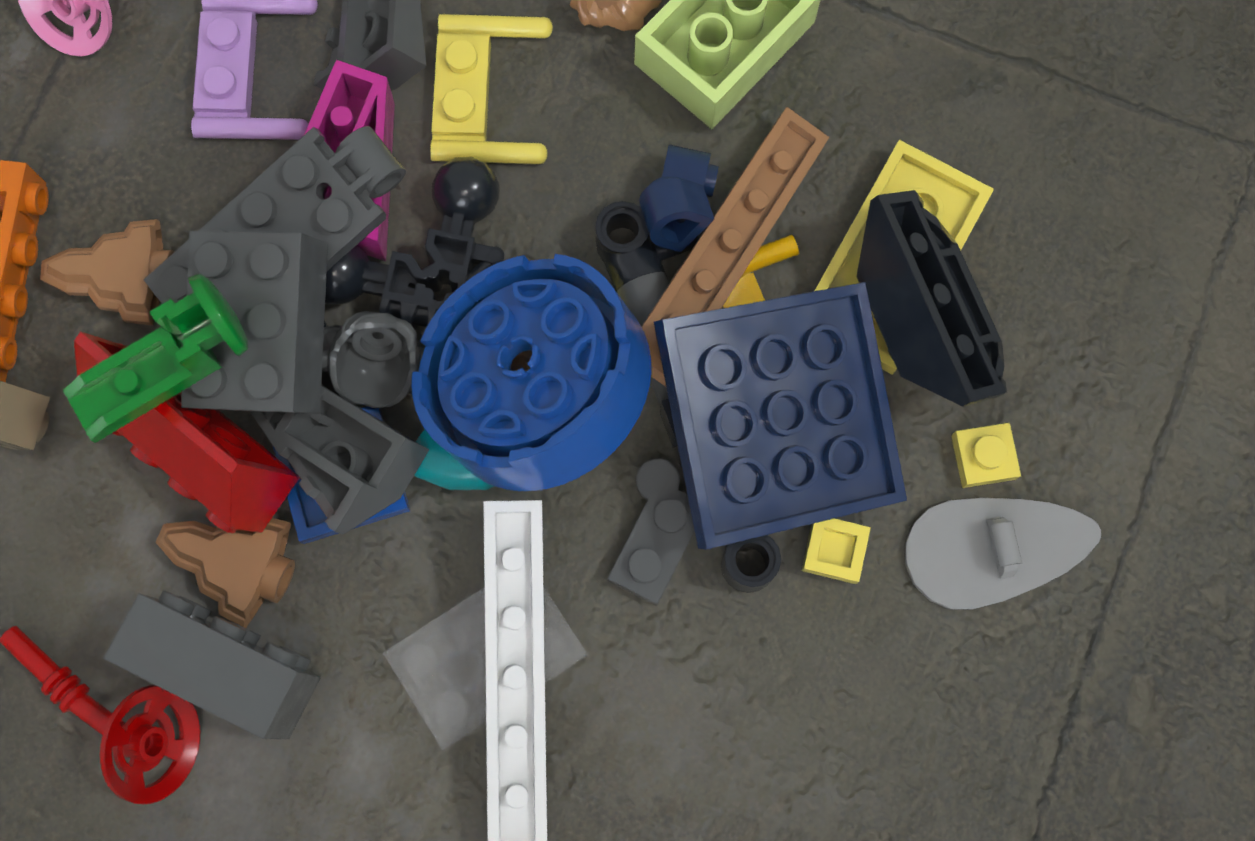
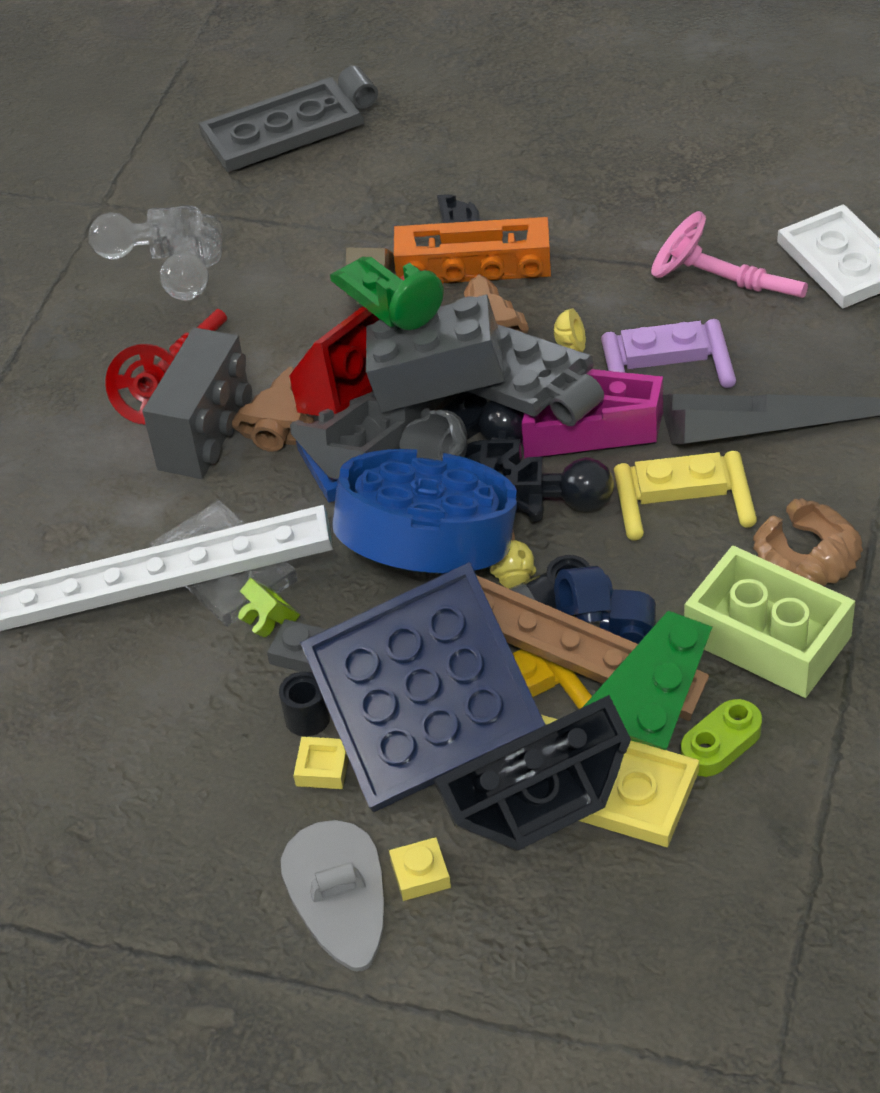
camera: 90 degrees right, 30 degrees down
(179, 172) = (570, 330): none -> light yellow animal
(584, 596) = (266, 605): none -> lime tile
(805, 164) = (656, 679): none -> green wing
(850, 115) = (726, 736): none -> lime plate

